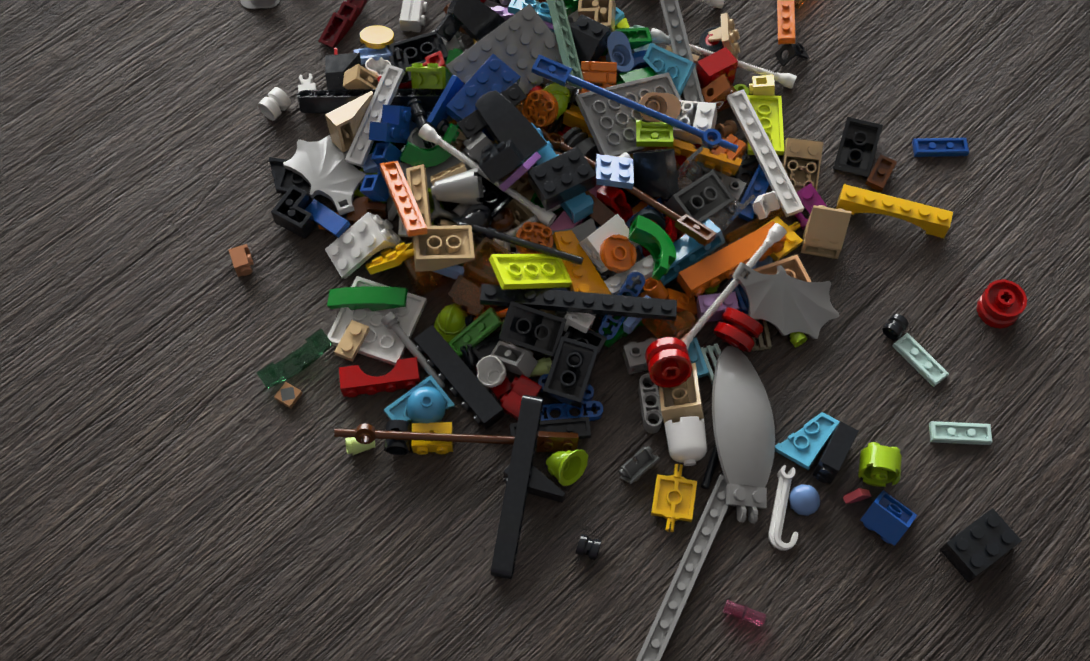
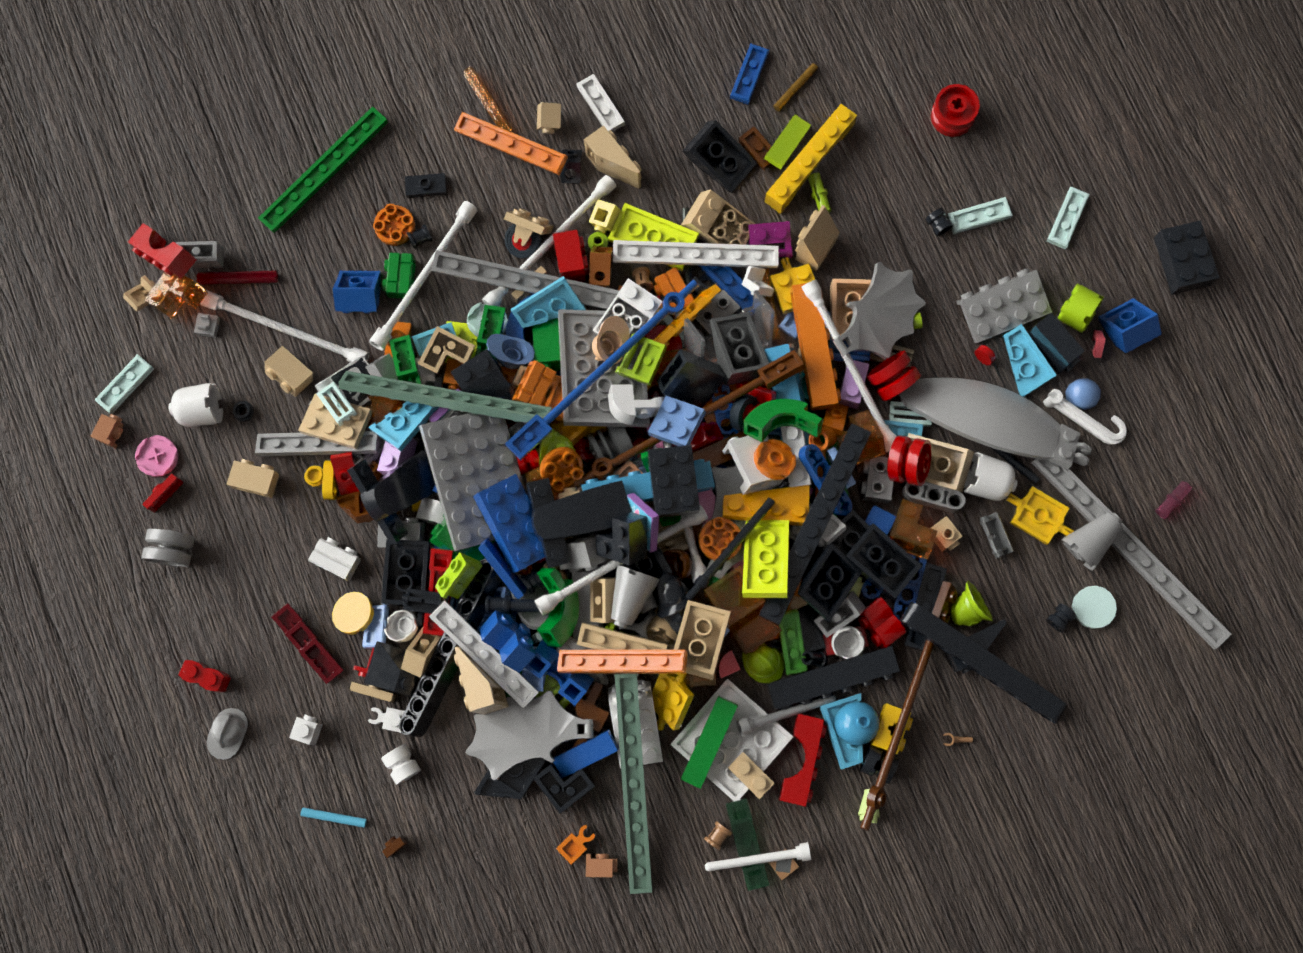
camera: 65 degrees left, 15 degrees up
(211, 122) = (394, 845): none -> reddish brown plate
(221, 80) = (333, 817): none -> medium azure bar
(253, 238) = (574, 846): none -> orange plate
(278, 38) = (306, 730): none -> white brick
(294, 336) = (717, 836): none -> medium nougat bush
(302, 402) = (800, 852): none -> white piece
(313, 252) = (633, 783): none -> sand green plate
(321, 69) = (373, 691): none -> tan plate
(438, 298) = (728, 665): none -> coral tile
(443, 493) = (955, 739): none -> medium nougat hand
(608, 368) = (881, 518): none -> blue panel
(608, 389) = (910, 535): none -> clear orange brick
(611, 132) = (624, 406): none -> white brick
(611, 575) = (1094, 607): none -> light aqua tile
(620, 423) = (947, 534): none -> tan brick
(670, 544) = (1093, 539): none -> light grey cone
(796, 403) = (985, 355): none -> red tile
(812, 69) = (611, 157): none -> tan slope
(820, 23) = (548, 117): none -> tan brick
(850, 403) = (1004, 305): none -> light grey bracket
(852, 55) = (600, 103): none -> white plate
(867, 230) = (819, 192): none -> lime pin
(897, 188) = (787, 142): none -> lime tile
(950, 183) = (795, 87): none -> pearl gold bar

